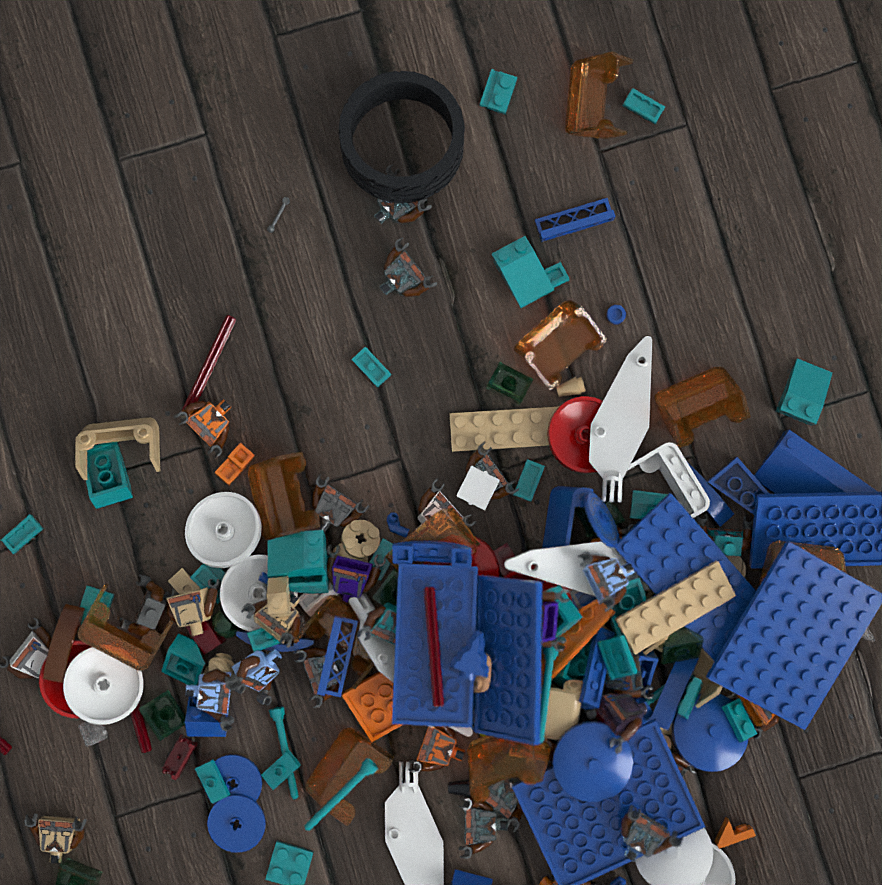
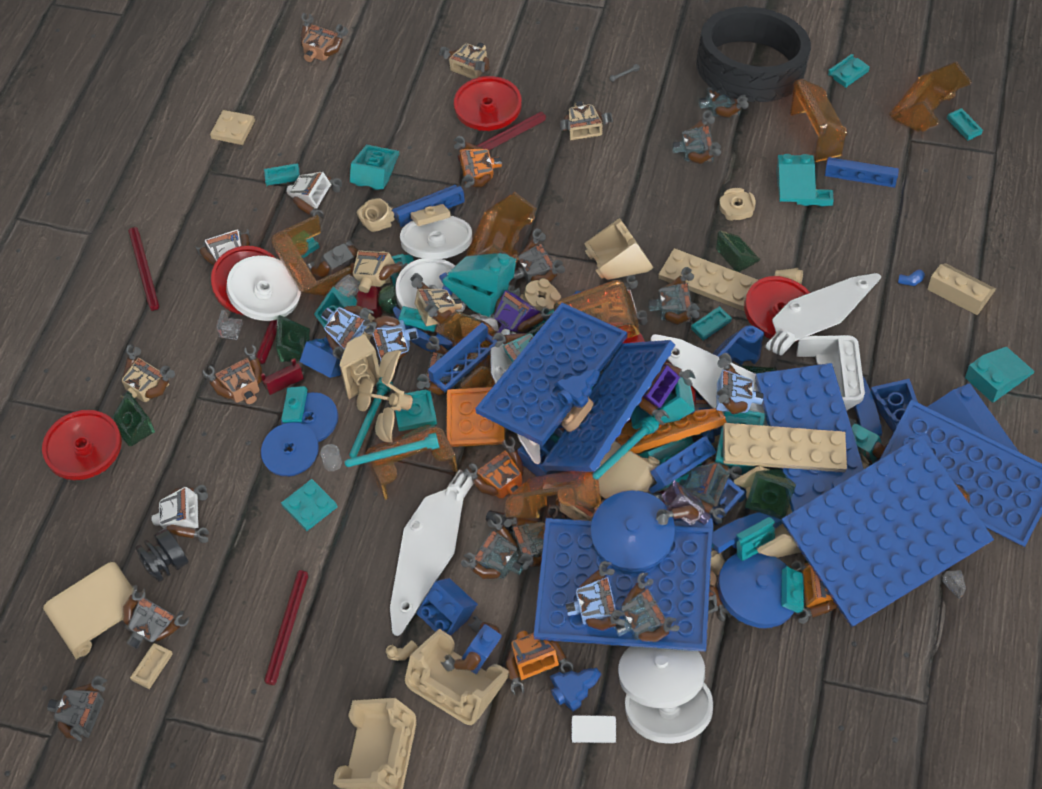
camera: 30 degrees right, 30 degrees down
(62, 643) = (249, 244): reddish brown slope -> none
(65, 542) = (310, 190): none -> torso
(114, 288) = (467, 60): none -> torso
(142, 430) = (397, 138): tan windscreen -> none
(144, 785) = (239, 380): none -> torso
(148, 535) = (376, 215): none -> tan hair
(170, 337) = (487, 103): none -> red dish
(181, 638) = (348, 286): none -> clear slope
(191, 494) = (449, 197): none -> blue fence
(200, 505) = (430, 214): none -> tan plate
(234, 464) = (476, 206): orange slope -> none
(249, 719) = (357, 364): none -> tan slope
(277, 306) = (584, 121): none -> torso
(278, 597) = (445, 285): tan slope -> none
(279, 809) = (331, 457): none -> clear wheel
(281, 770) = (356, 425): teal plate -> none
(290, 728) = (398, 400): none -> tan plant
(320, 723) = (419, 414): none -> teal plate
(371, 367) = (630, 191): teal plate -> none
(409, 459) = (617, 252): none -> tan windscreen
(432, 551) = (603, 311): blue slope -> none
(433, 646) = (550, 367): dark red axle -> none
(478, 487) = (664, 300): white piece -> none
(481, 316) = (735, 212): none -> tan plate
(508, 185) = (814, 101): none -> clear orange windscreen
(559, 342) = (799, 241): clear orange windscreen -> none
(601, 519) = (756, 347): blue piece -> none
(601, 845) = (596, 601): none -> torso
(616, 314) = (859, 247): blue tile -> none
(617, 657) = (707, 458): teal plate -> none
(682, 328) = (912, 280): none -> blue arm
(699, 402) = (898, 333): clear orange windscreen -> none
(728, 836) = (723, 690): orange slope -> none
(730, 312) = (960, 288): none -> tan slope

